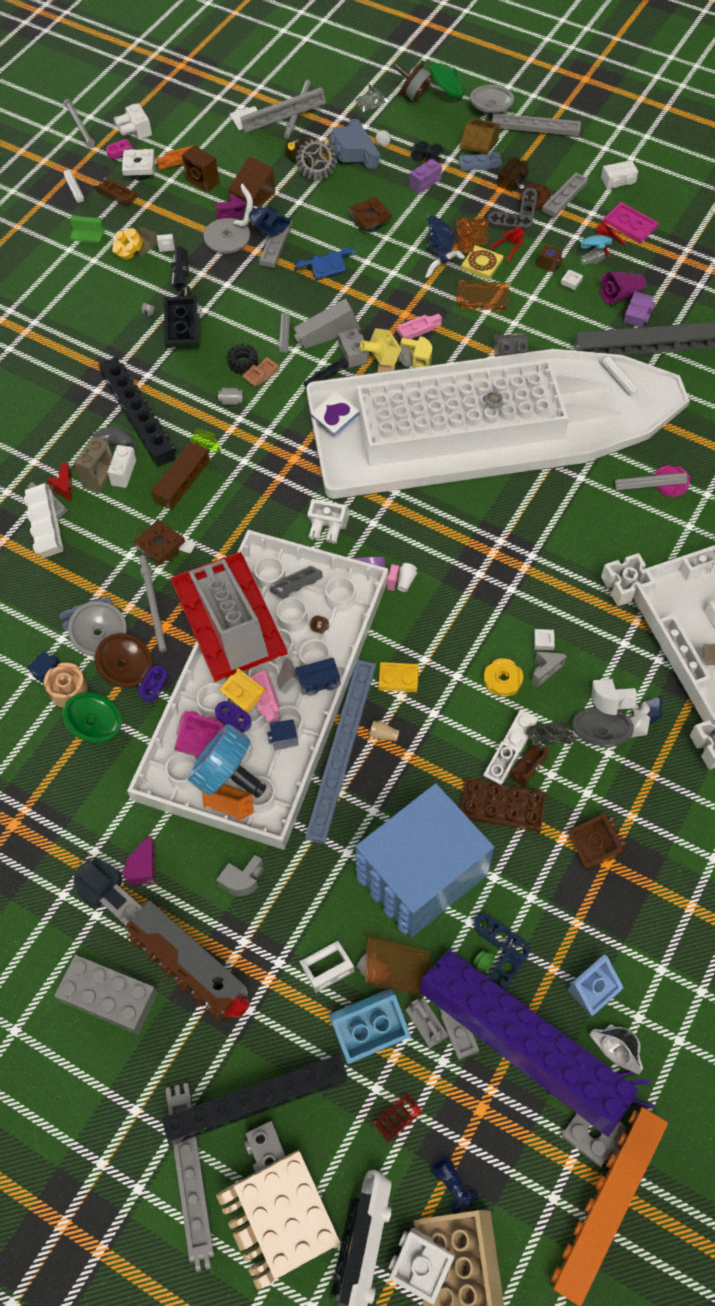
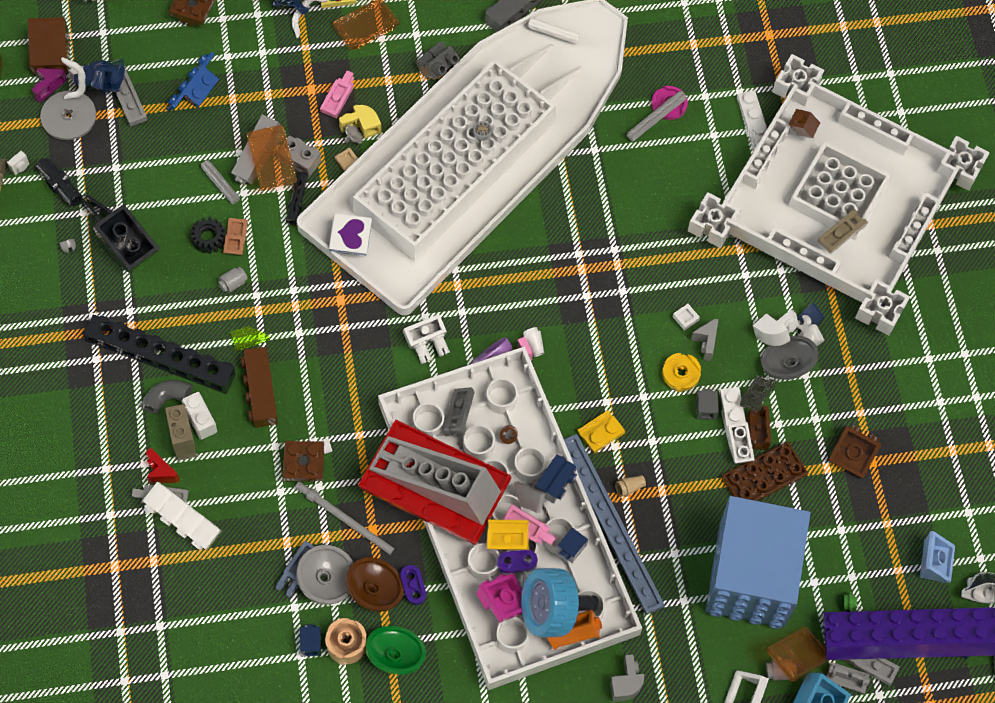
camera: 45 degrees left, 5 degrees up
(328, 332) = (271, 157): none -> clear orange piece
(383, 347) = (330, 138): light yellow brick -> none
(501, 715) = (707, 404): none -> dark grey brick
(510, 955) = (862, 583): dark blue beam -> none

